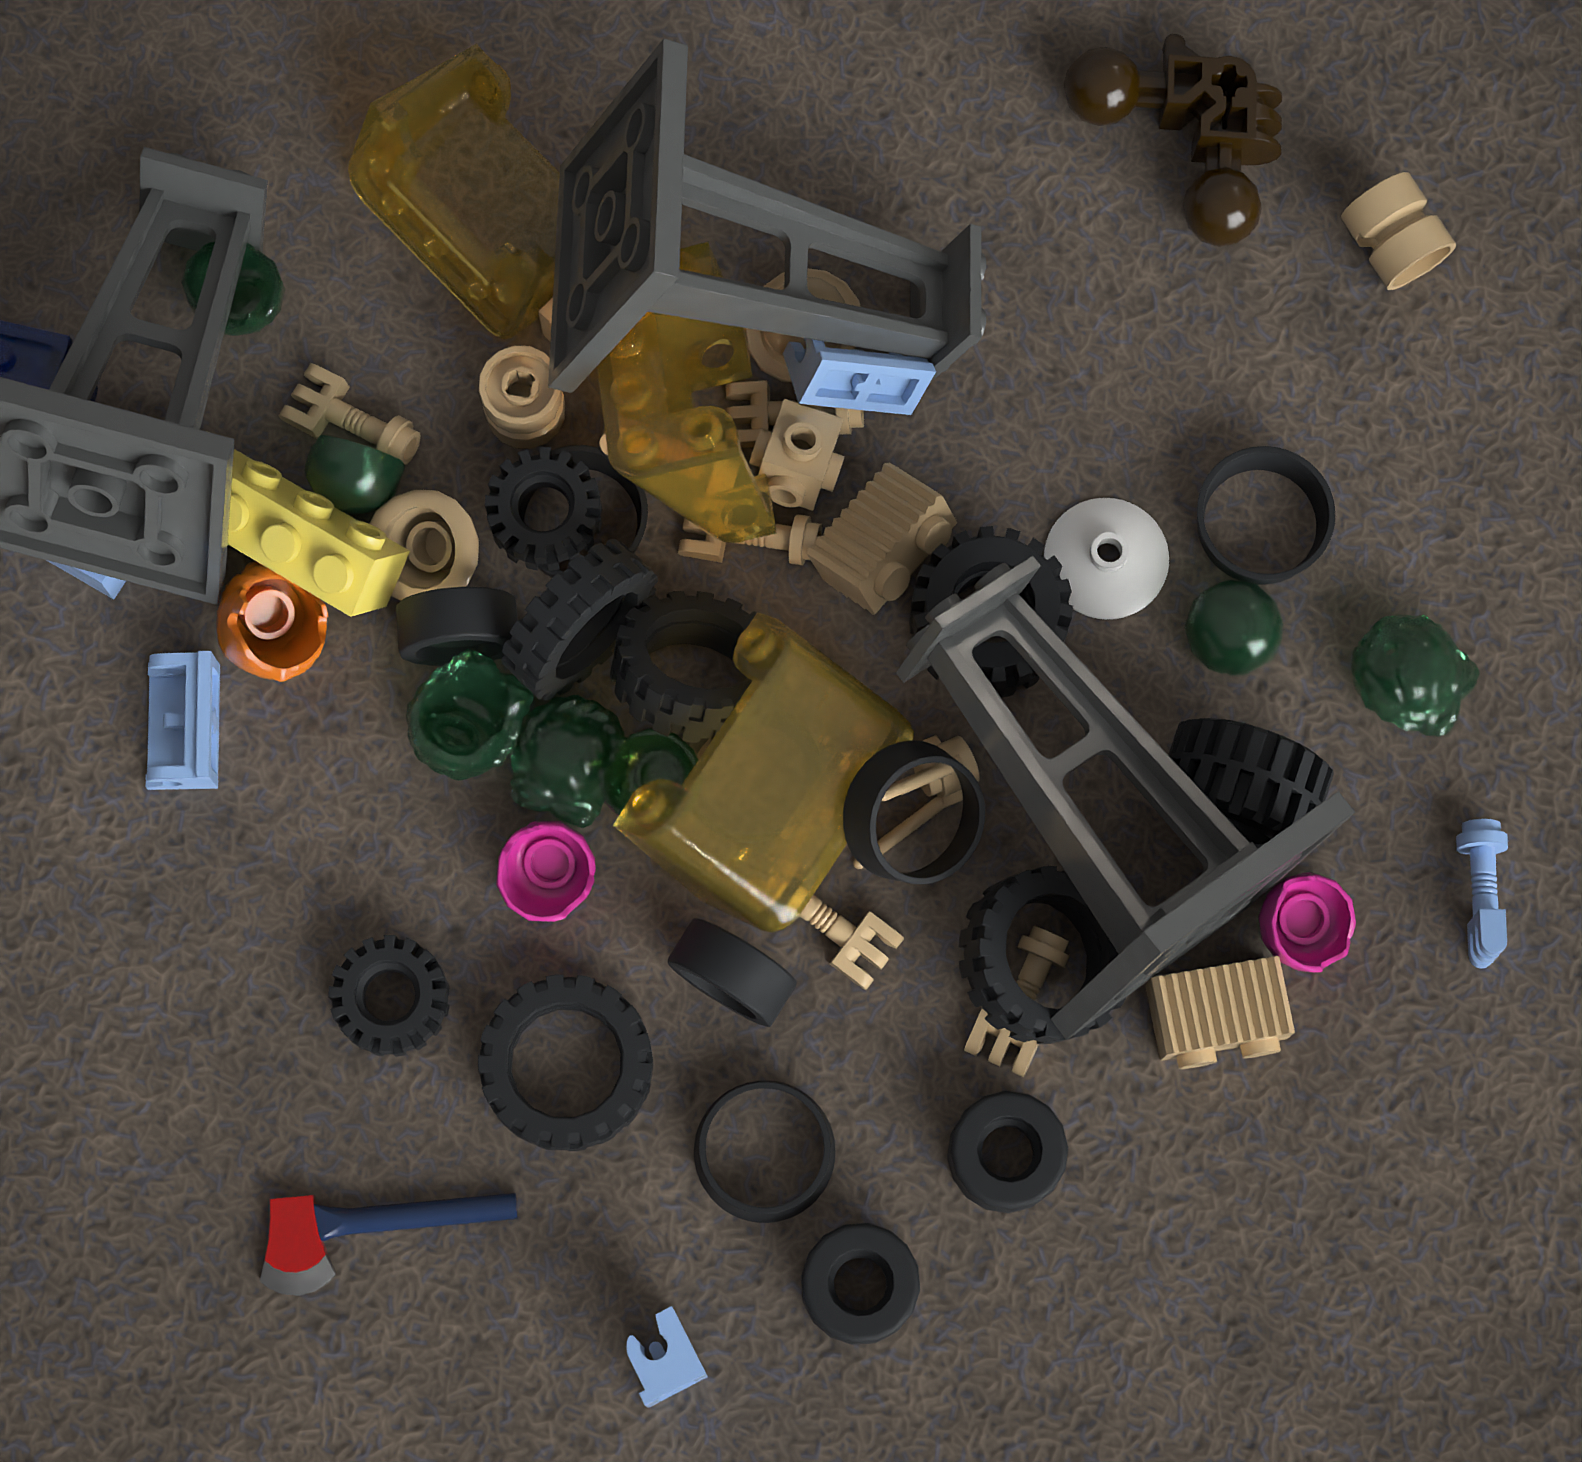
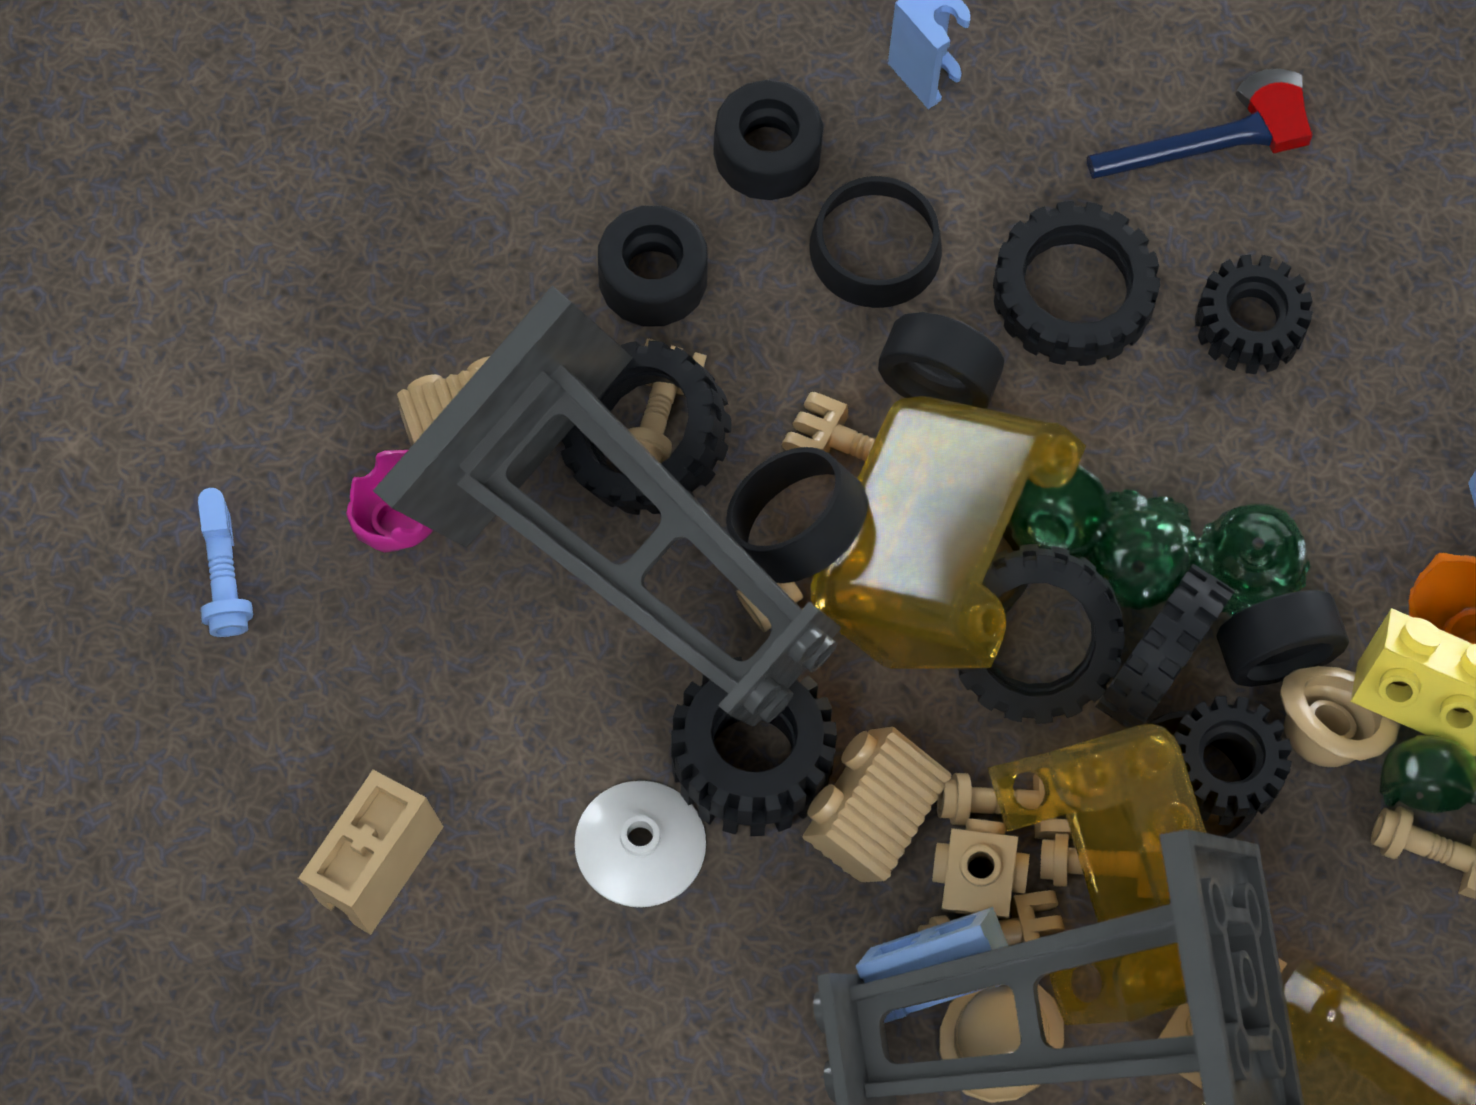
camera: 170 degrees right, 10 degrees down
(518, 397) = (1294, 880): tan wheel -> none
(542, 853) = (1138, 435): dark pink hair -> none
(1234, 627) = (498, 788): clear green hair -> none
(1251, 774) = (474, 597): black tyre -> none
(1286, 464) = (474, 838): black tyre -> none
(1365, 575) = (372, 850): none -> tan hinge
(1420, 681) = (297, 761): clear green hair -> none

